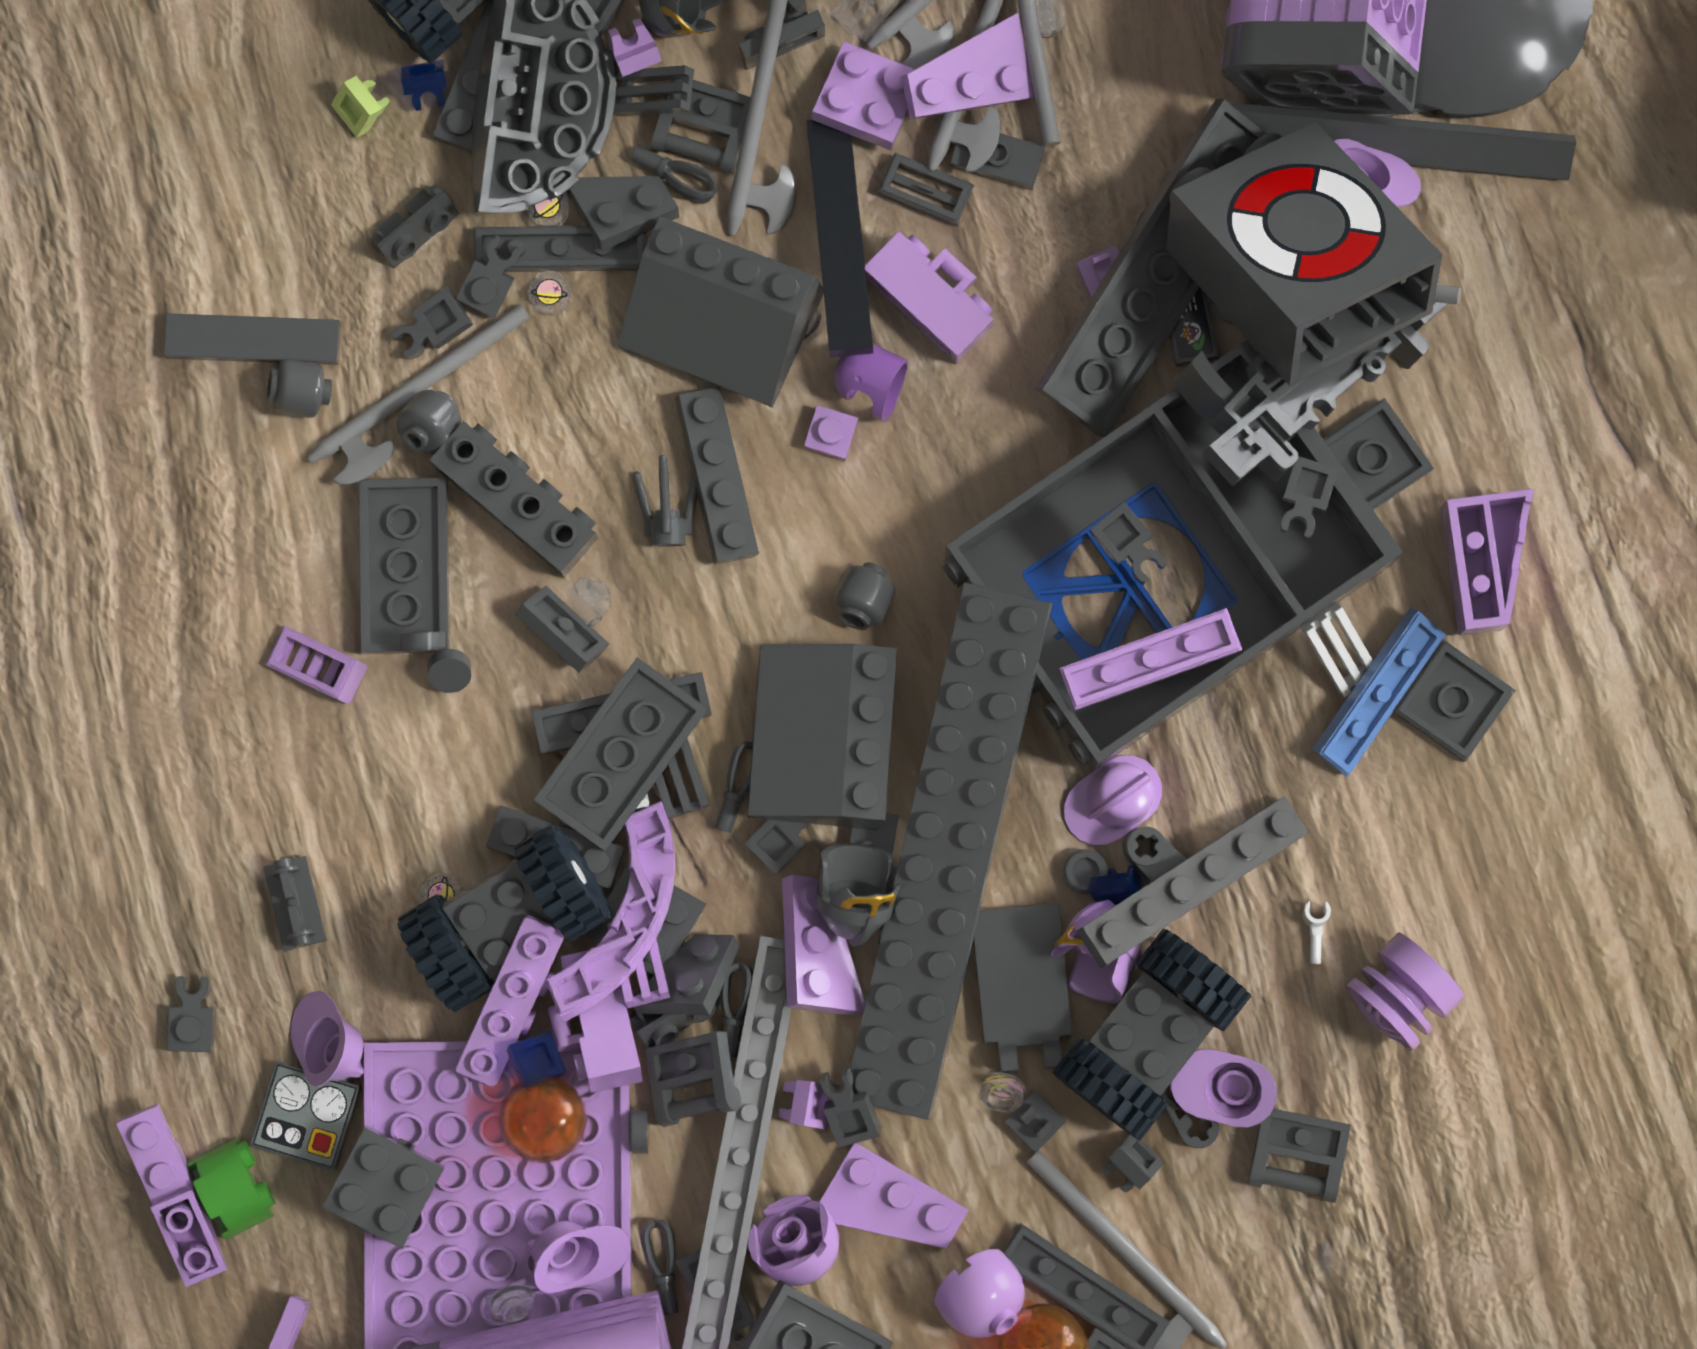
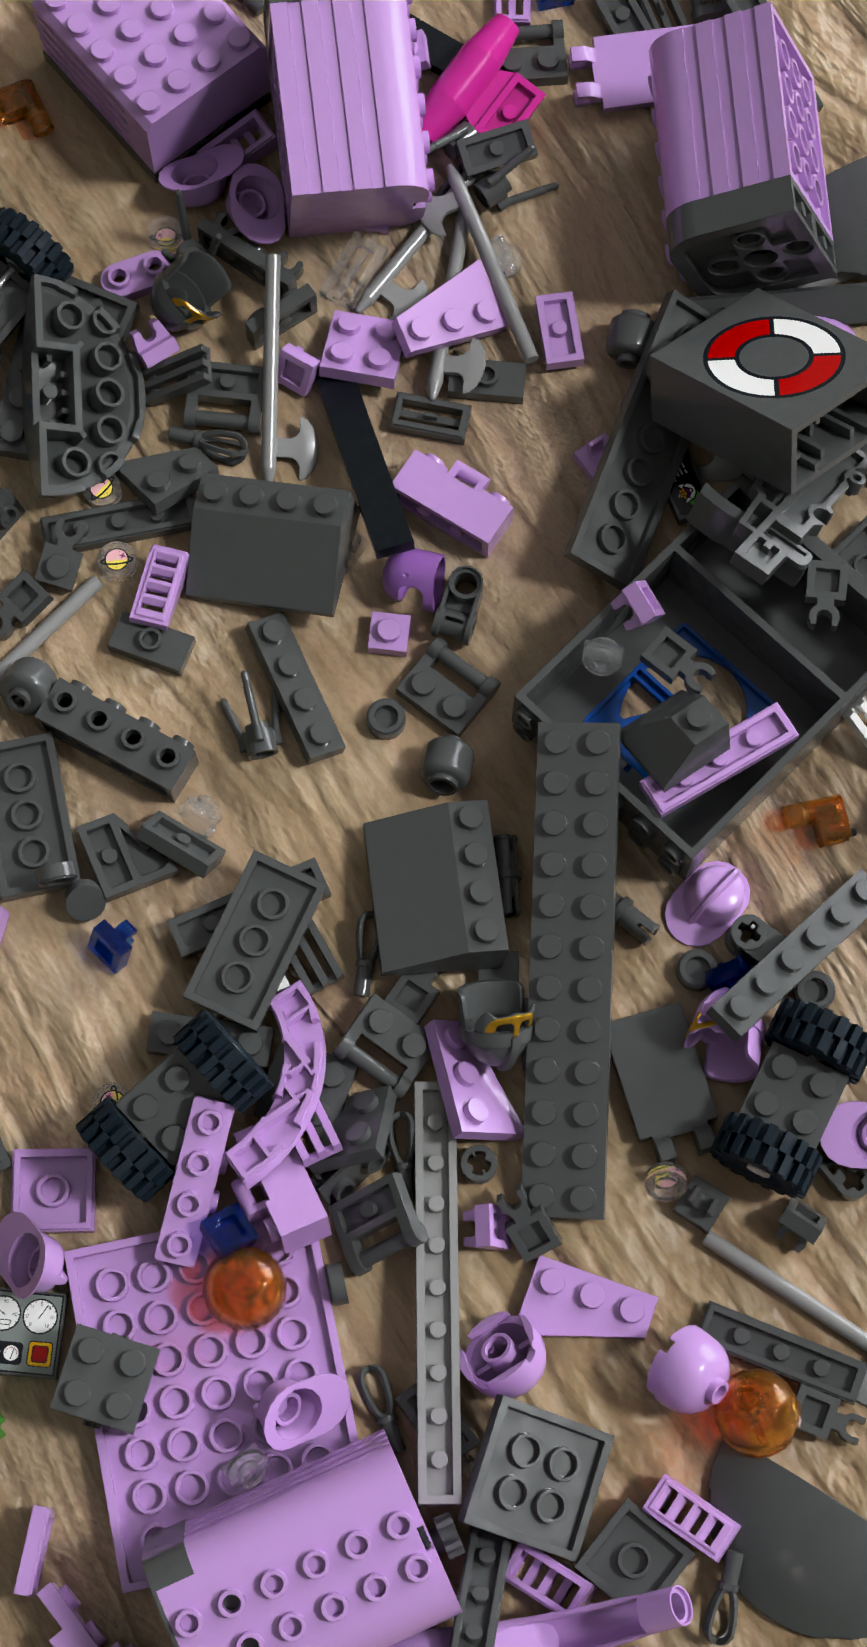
camera: 15 degrees left, 10 degrees down
(366, 974) = (56, 1188): none -> lavender tile
(471, 726) = (112, 944): none -> clear blue tile
(493, 633) = (120, 859): none -> dark grey wing
(571, 394) = (152, 646): none -> dark grey plate
(591, 309) = (165, 564): none -> lavender slope
(750, 883) = (394, 1036): none -> dark grey plate
(788, 106) = (297, 369): none -> lavender tile
(798, 1038) = (490, 1159): none -> dark grey bush
(809, 529) = (386, 719): none -> dark grey tile
(872, 516) = (441, 698): none -> dark grey plate
(904, 728) = (508, 873): none -> dark grey pin
(911, 422) = (457, 611): none -> dark grey piece
(1027, 803) = (632, 919): none -> dark grey pin
(1049, 520) = (602, 656): none -> clear plate
(1090, 114) = (559, 330): none -> lavender plate
(1104, 469) = (643, 603): none -> lavender tile
(1107, 629) = (677, 738): none -> dark grey slope
(1165, 139) = (628, 337): none -> dark grey head
(1206, 920) = (816, 988): none -> dark grey tile
(1261, 731) = (826, 816): none -> clear orange piece

